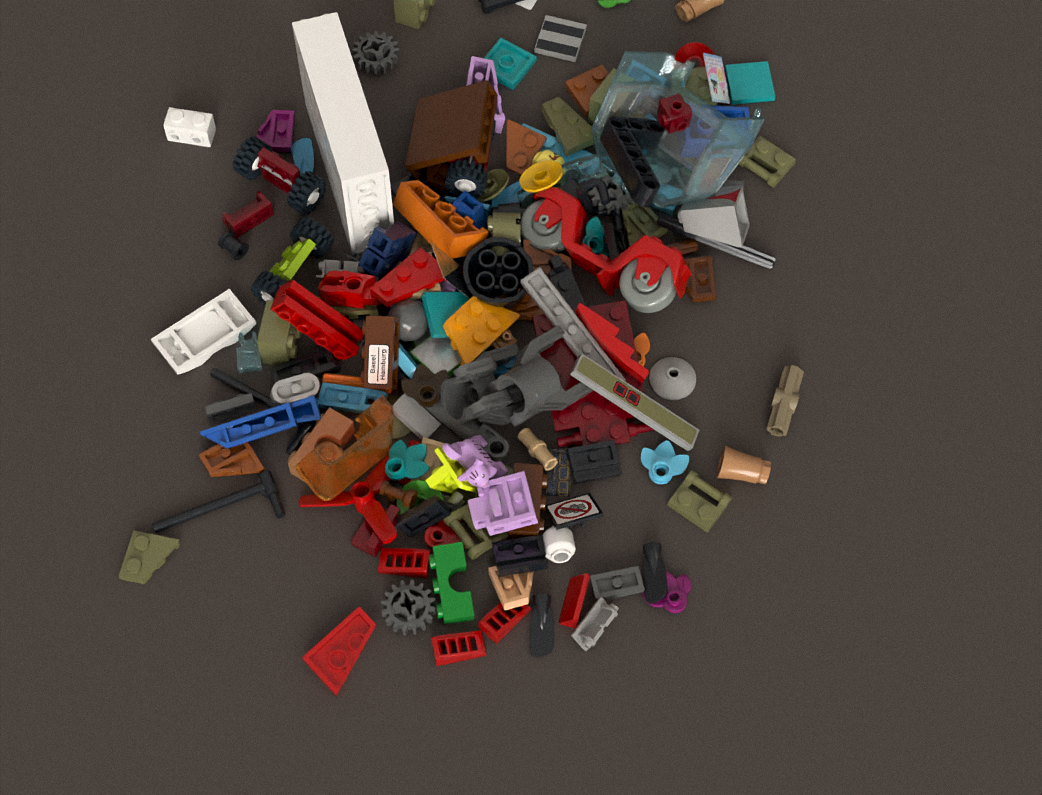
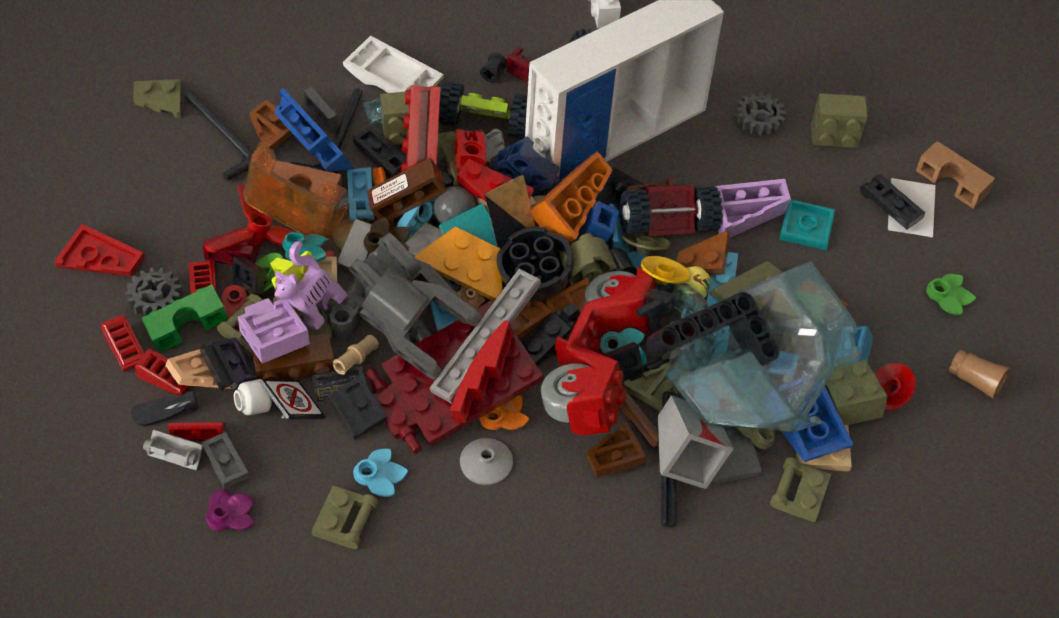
camera: 70 degrees right, 10 degrees down
(294, 389) = (348, 142): light grey brick -> none
(408, 497) = (263, 256): reddish brown piece -> none
(452, 126) = (689, 184): reddish brown panel -> none
(560, 38) = (863, 262): tile -> none
(634, 402) = (427, 416): tile -> none
(654, 573) = (245, 490): black piece -> none
(674, 113) = (789, 358): dark red brick -> none
(716, 78) = (870, 399): sticker -> none
(742, 466) = (393, 543): medium nougat plant -> none
(749, 82) = (900, 451): teal tile -> none
(785, 400) = (492, 571): dark tan piece -> none

